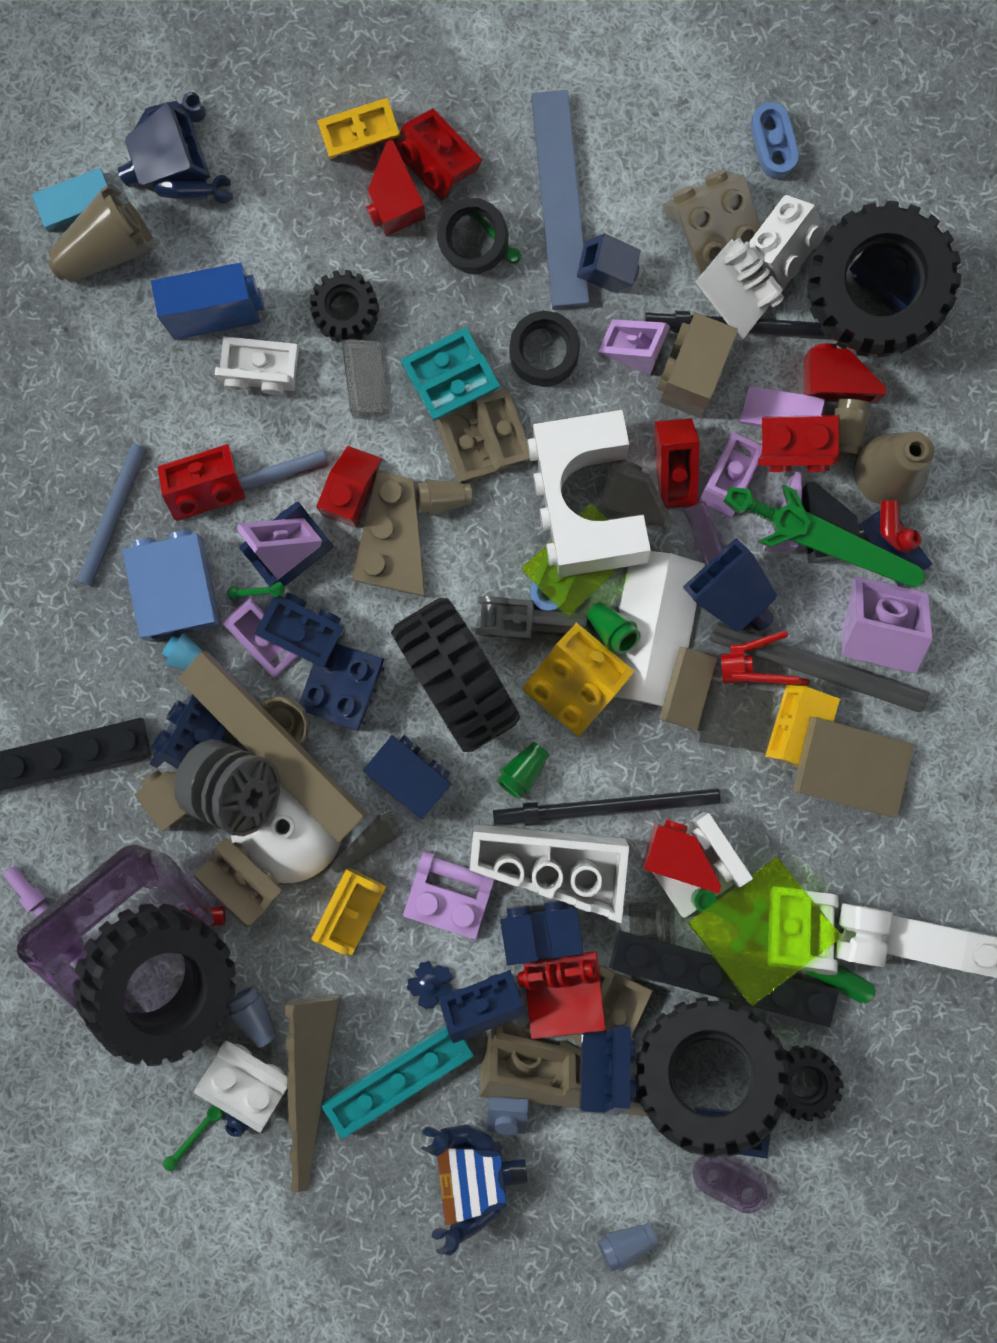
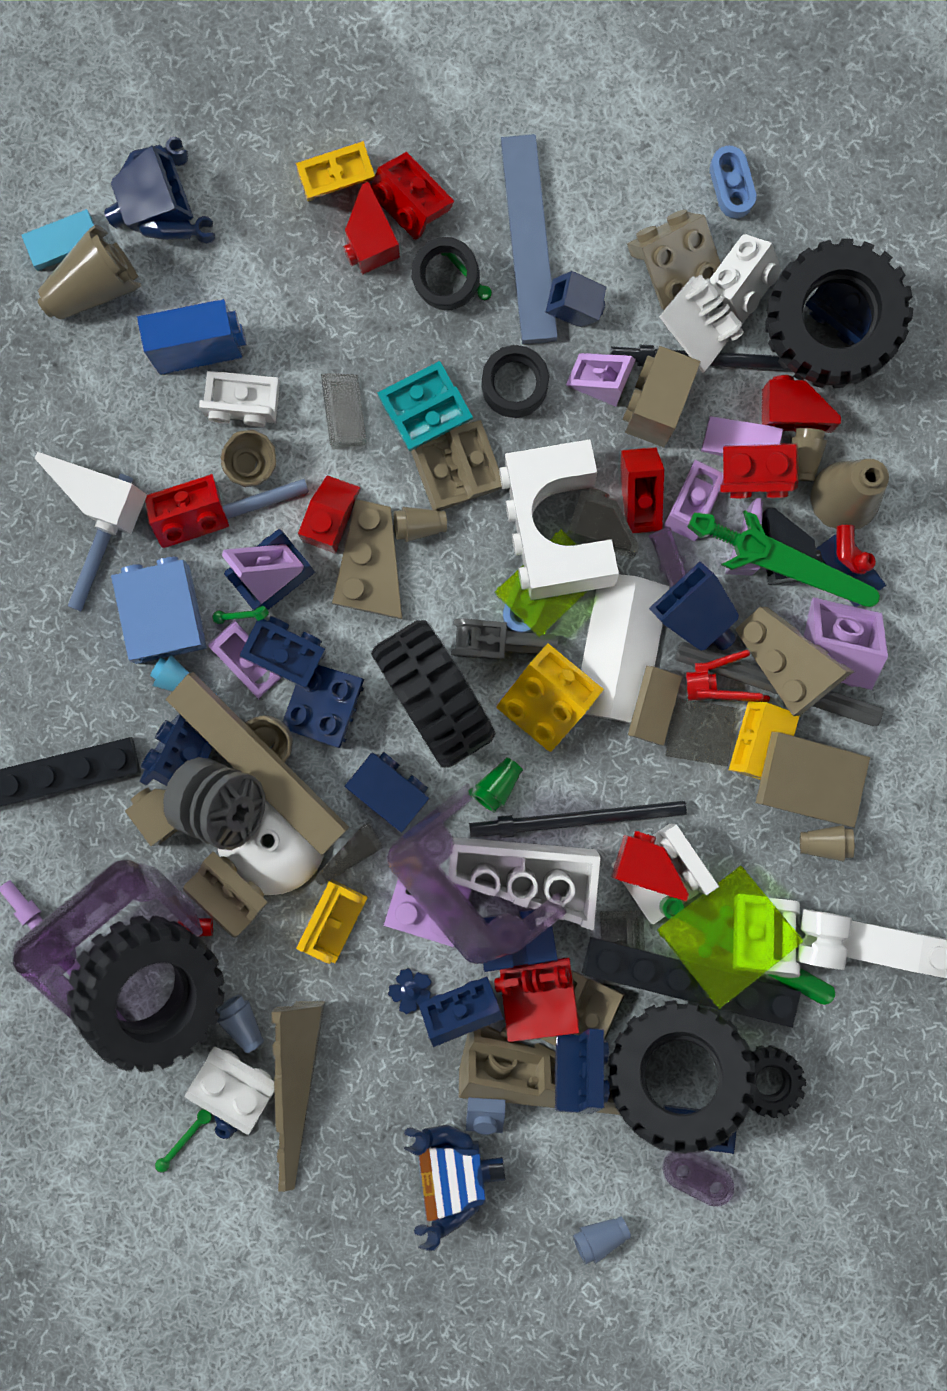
camera: 10 degrees left, 0 degrees up
(113, 468) = (101, 497): none -> white slope
(257, 426) = (241, 455): none -> dark tan hair
(338, 286) = (318, 322): black tyre -> none
(395, 1081) = (377, 1084): teal plate -> none
(437, 850) = (417, 862): none -> clear purple windscreen
(614, 629) = (583, 648): green cone -> none
(832, 645) = (792, 663): none -> dark tan wing
(869, 834) = (828, 843): none -> dark tan cone

